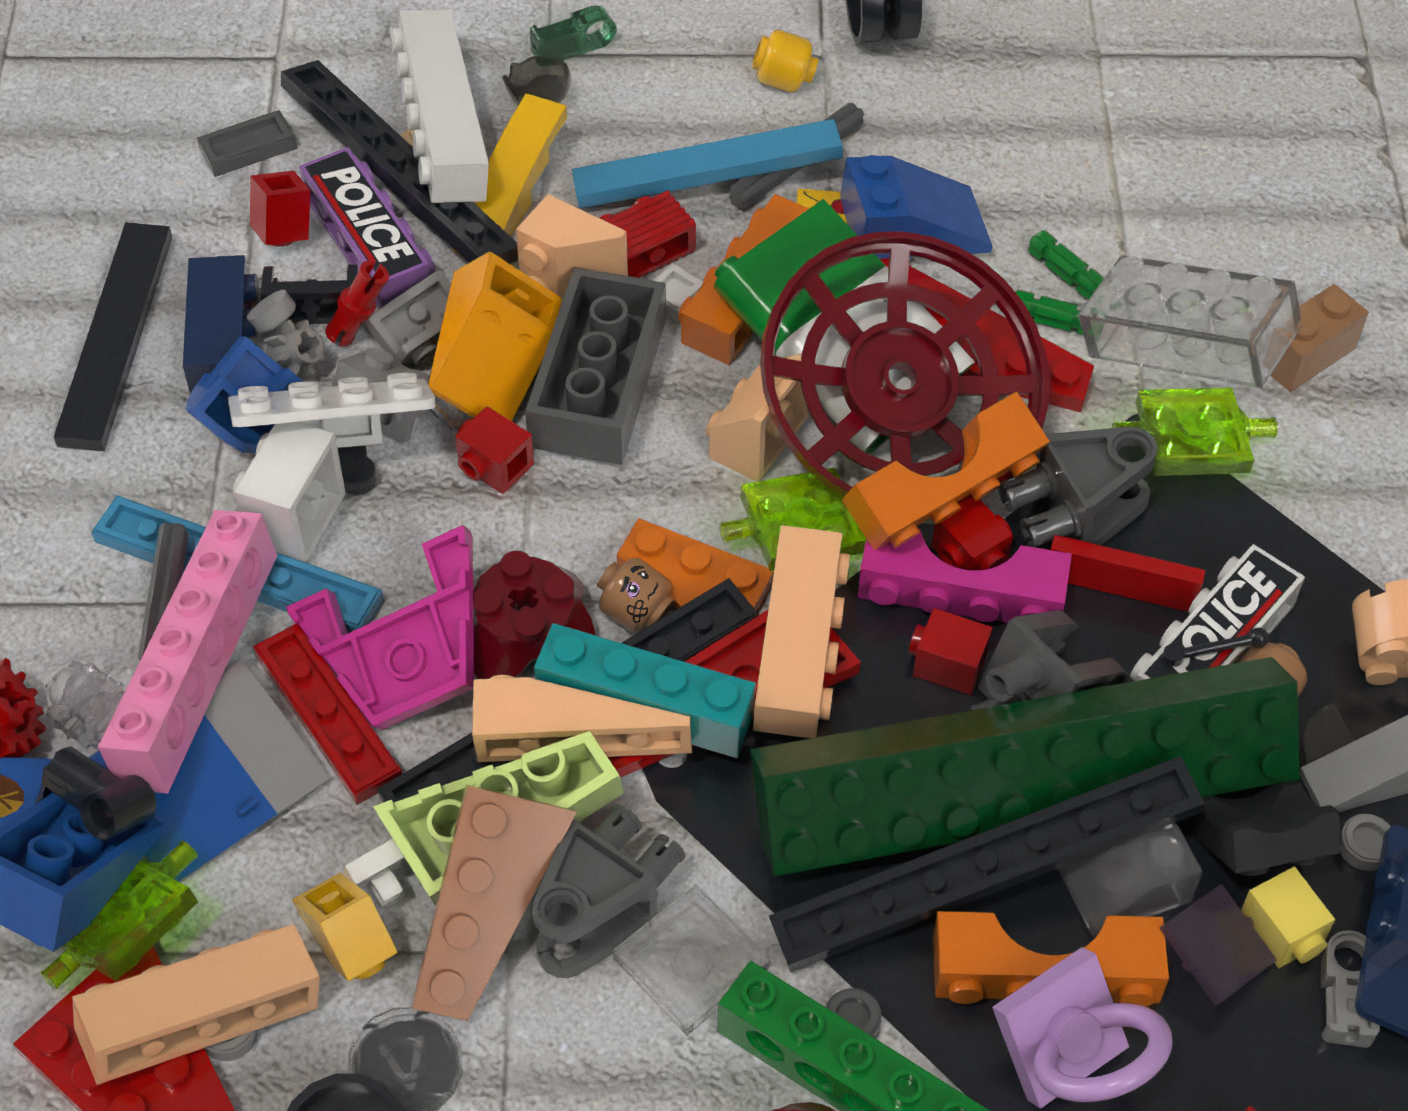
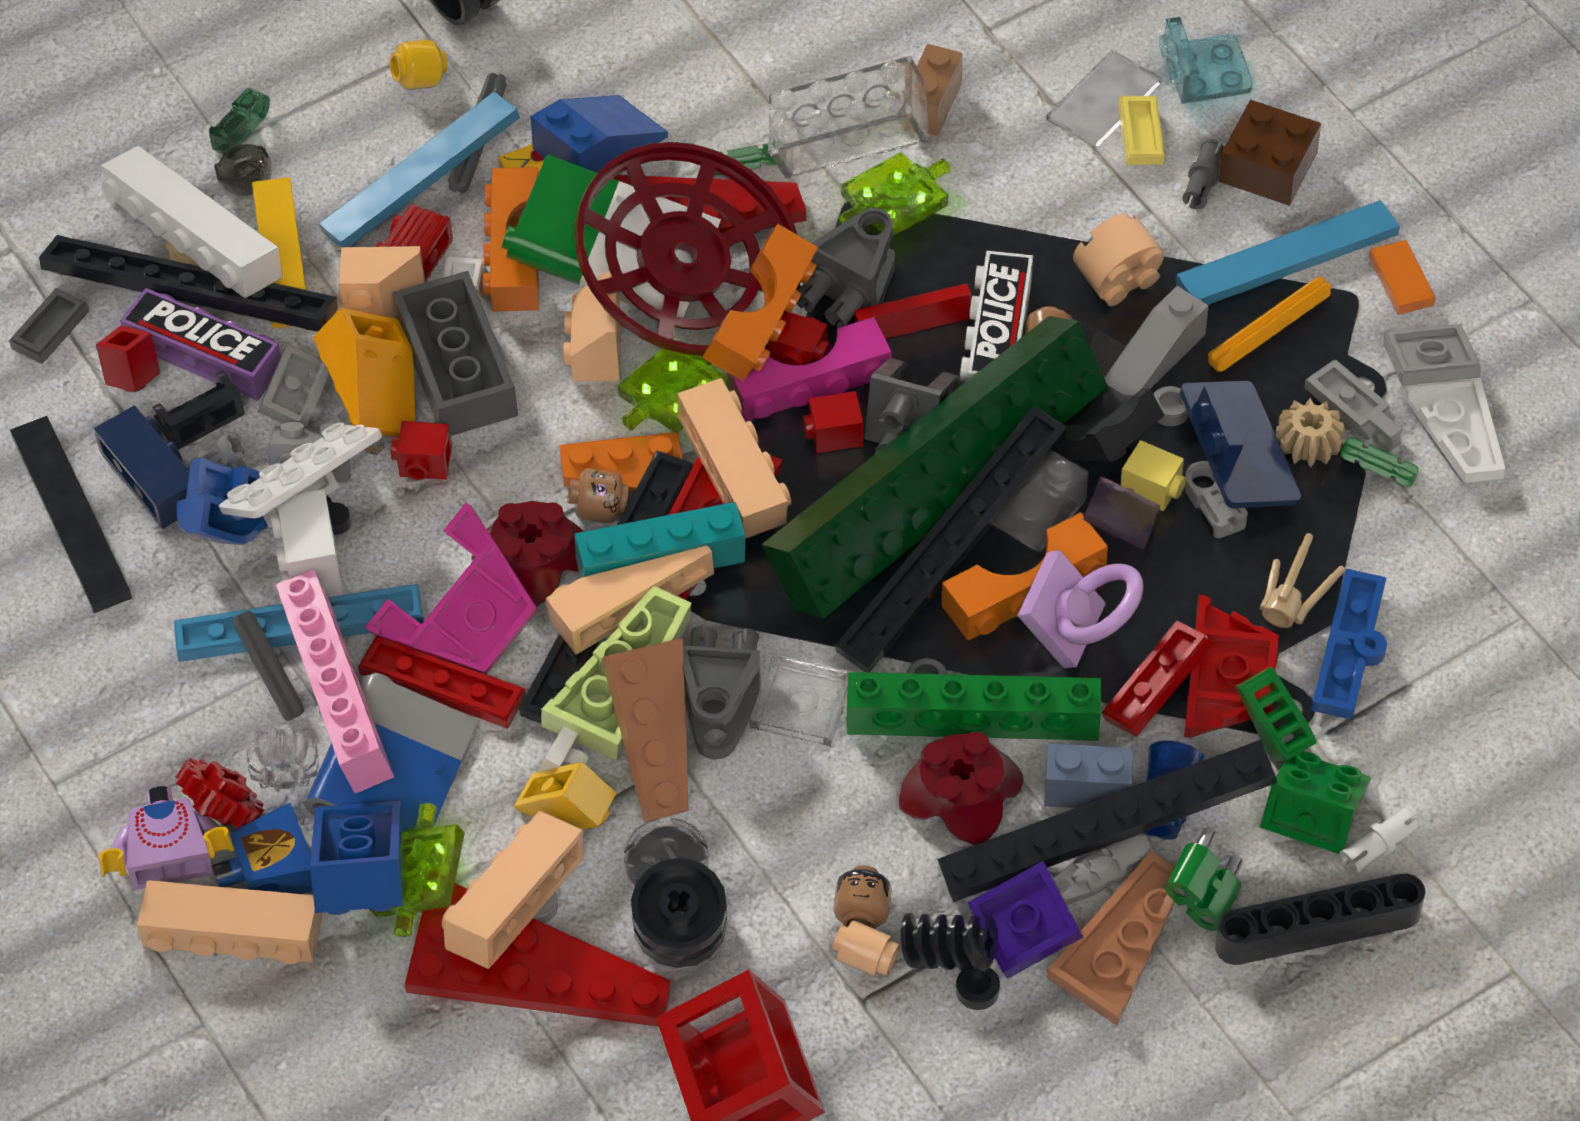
camera: 30 degrees left, 0 degrees up
(104, 800) = (350, 798): black piece -> none
(271, 311) = (190, 434): light grey tile -> none
(357, 303) = (249, 397): red pin -> none
(1065, 263) = (727, 119): green axle -> none
(1175, 654) = (983, 347): black hinge -> none

